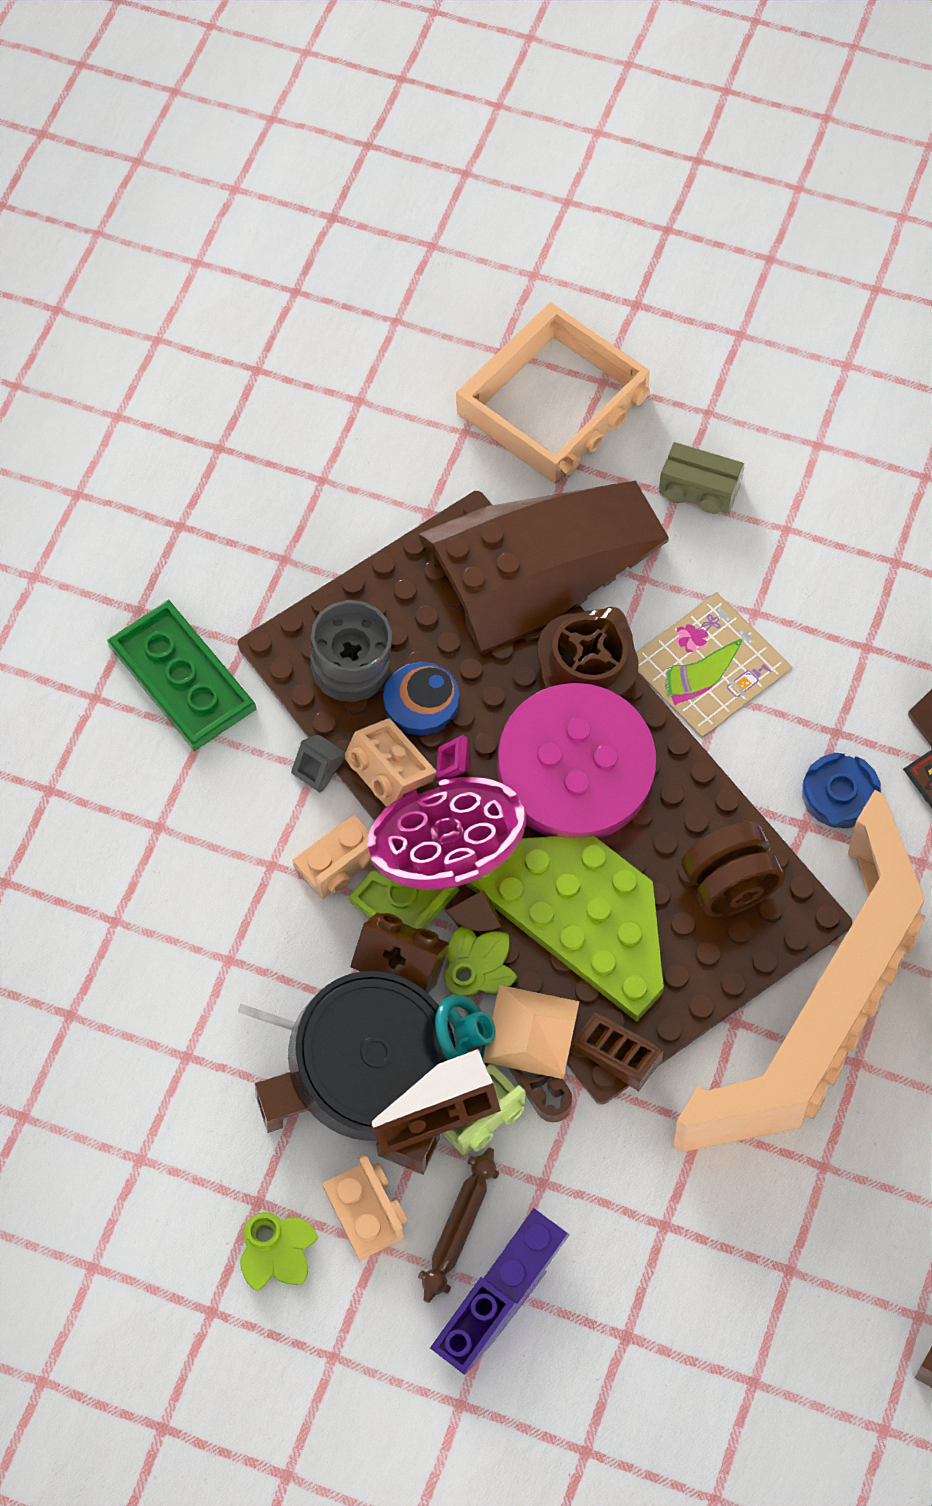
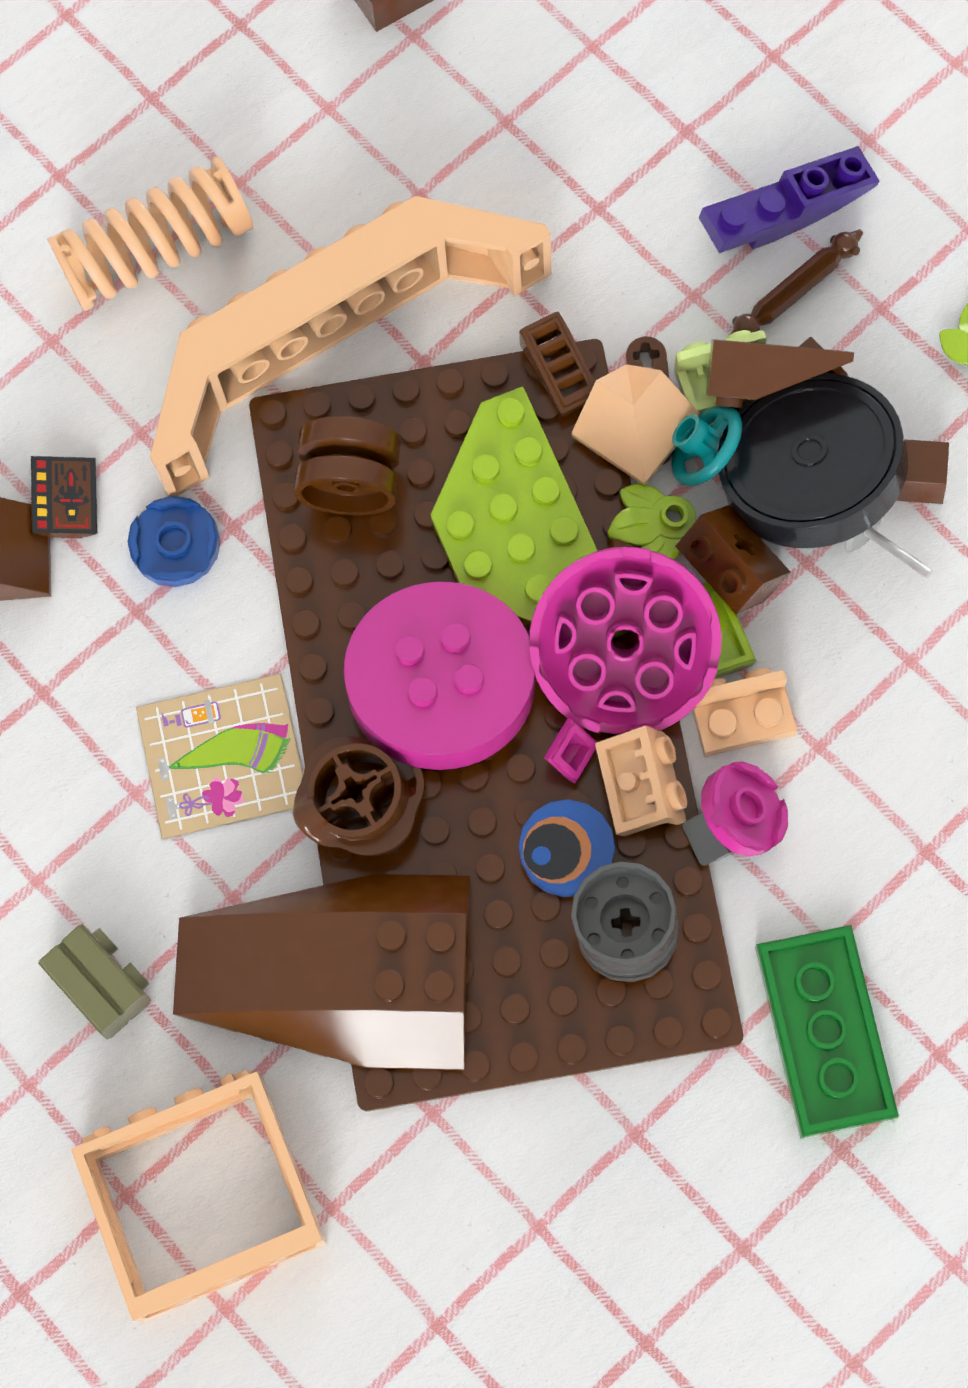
camera: 150 degrees left, 10 degrees up
(304, 780) = (744, 809): none -> dark pink tile
(364, 1208) = (881, 339): light nougat bracket -> none

